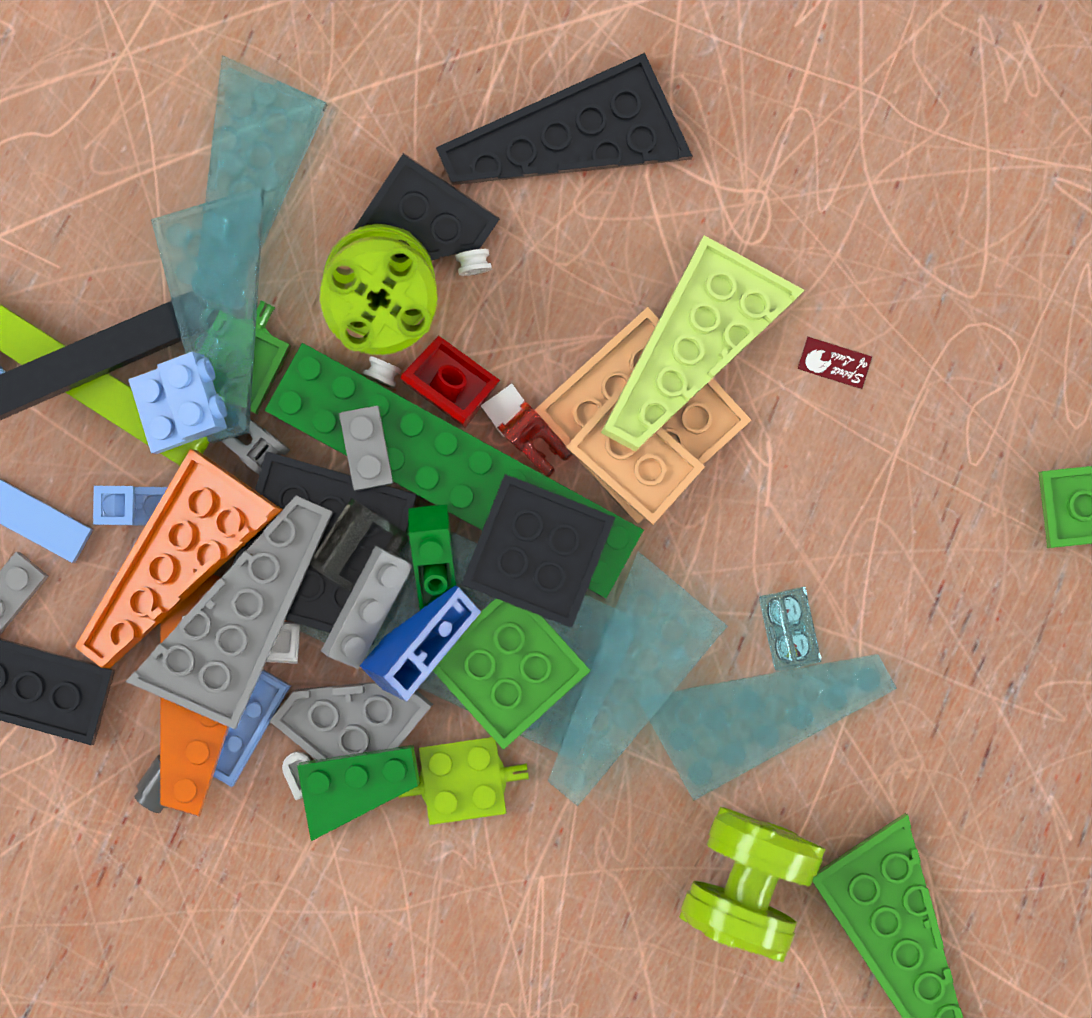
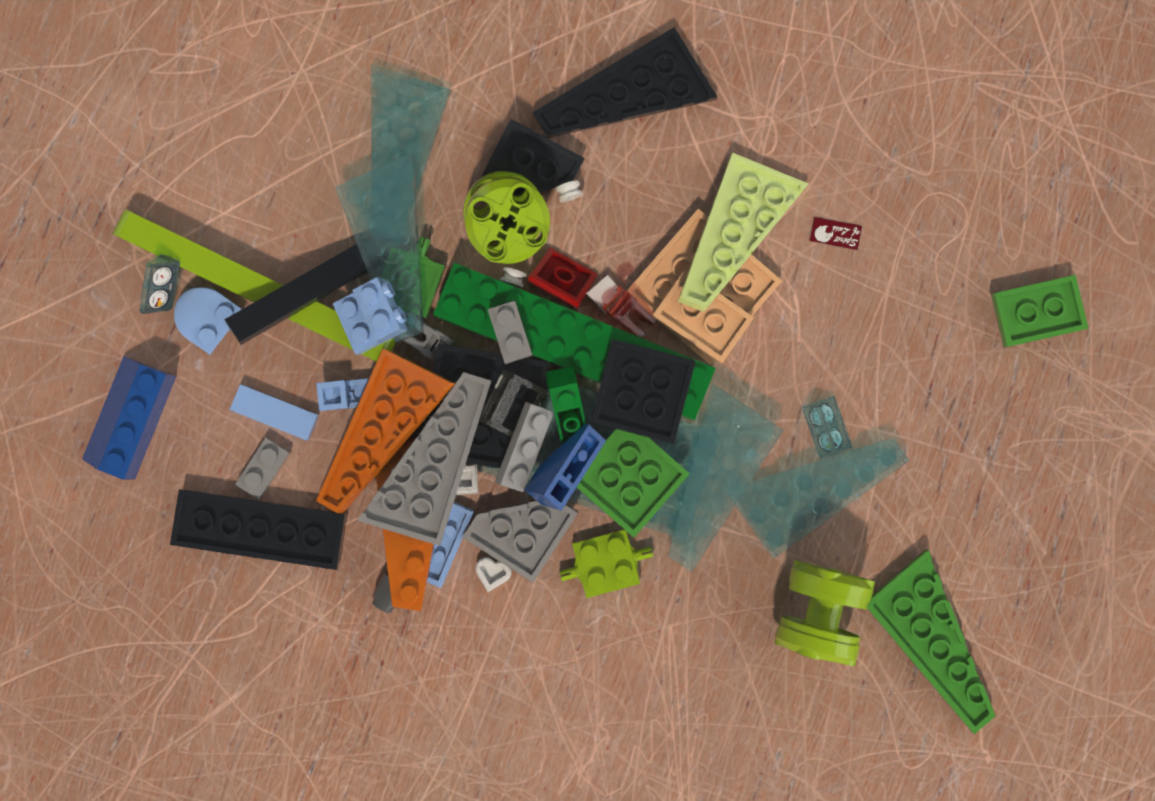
camera: 10 degrees left, 0 degrees up
(354, 784) = (528, 576): green wing -> none

